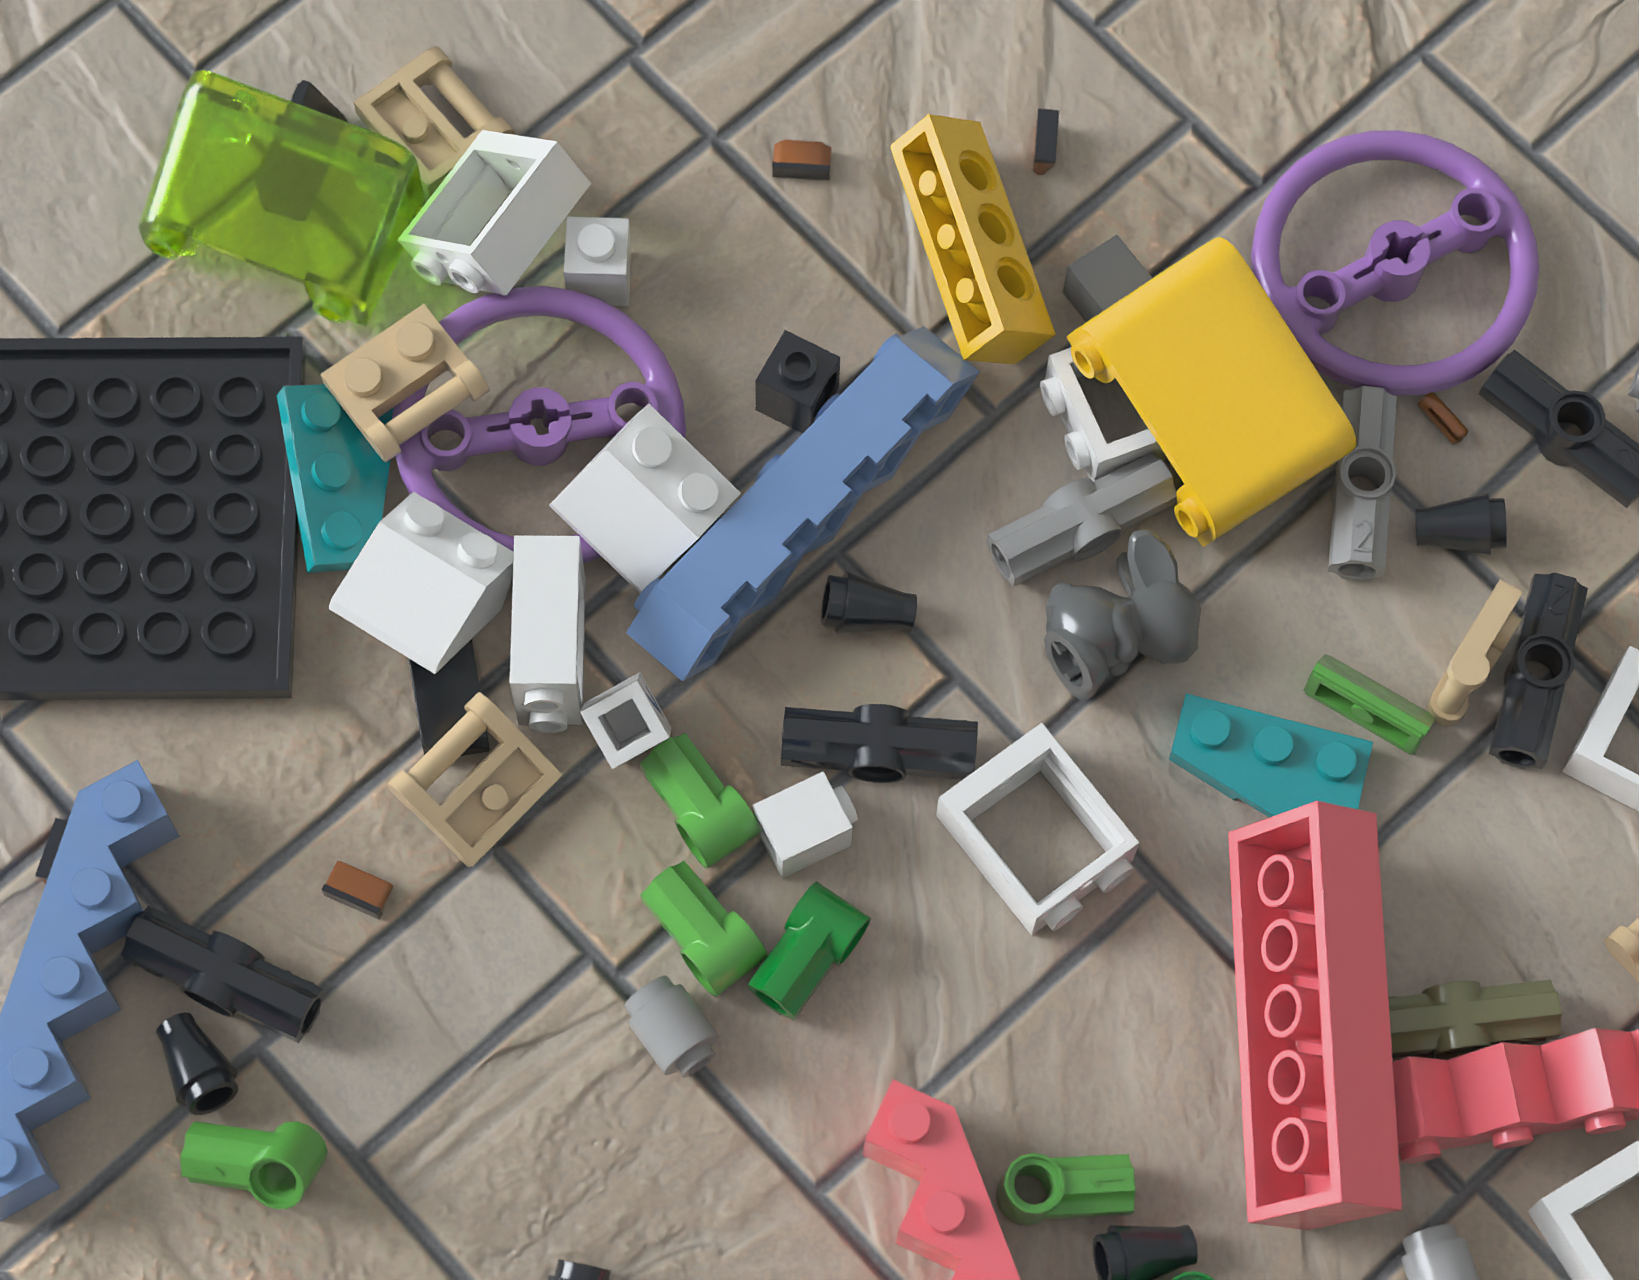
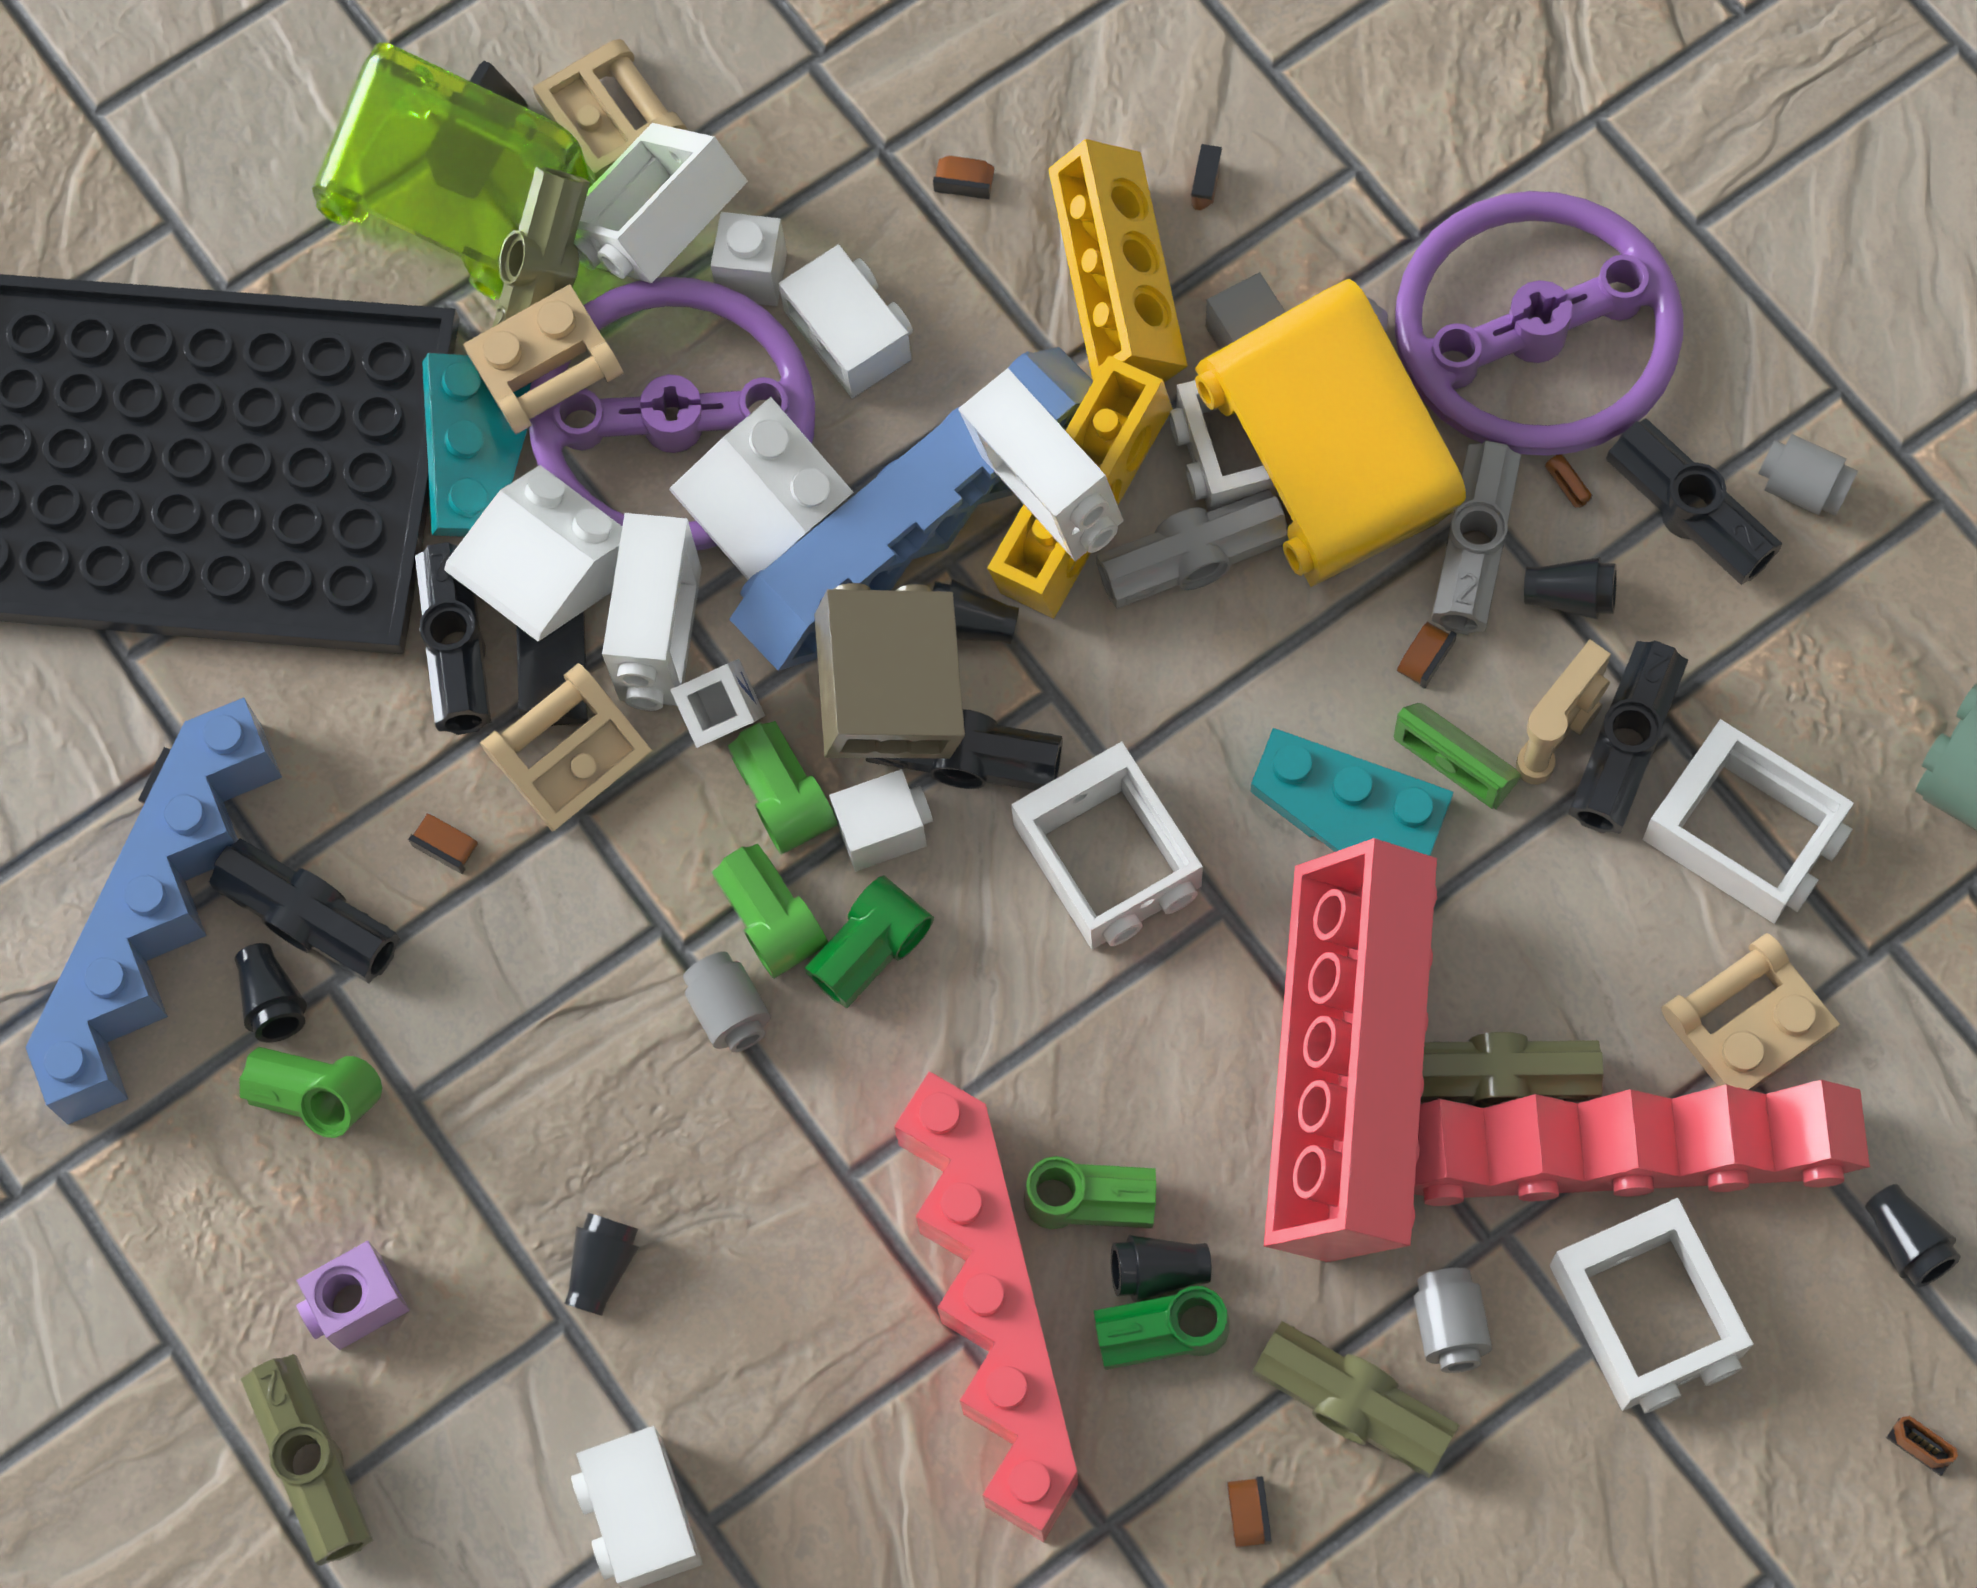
camera: 15 degrees right, 0 degrees up
(350, 709) = (457, 668): none -> black piece
(389, 275) = (543, 251): none -> olive piece
(704, 315) = (847, 320): none -> white brick
(796, 382) = (926, 389): black brick -> none
(802, 675) = (888, 673): none -> dark tan brick
(937, 451) = (1042, 465): none -> white window
(966, 467) = (1116, 431): none -> yellow brick
(1103, 632) = (1195, 658): dark grey animal -> none
(1326, 604) = (1426, 654): none -> dark orange piece

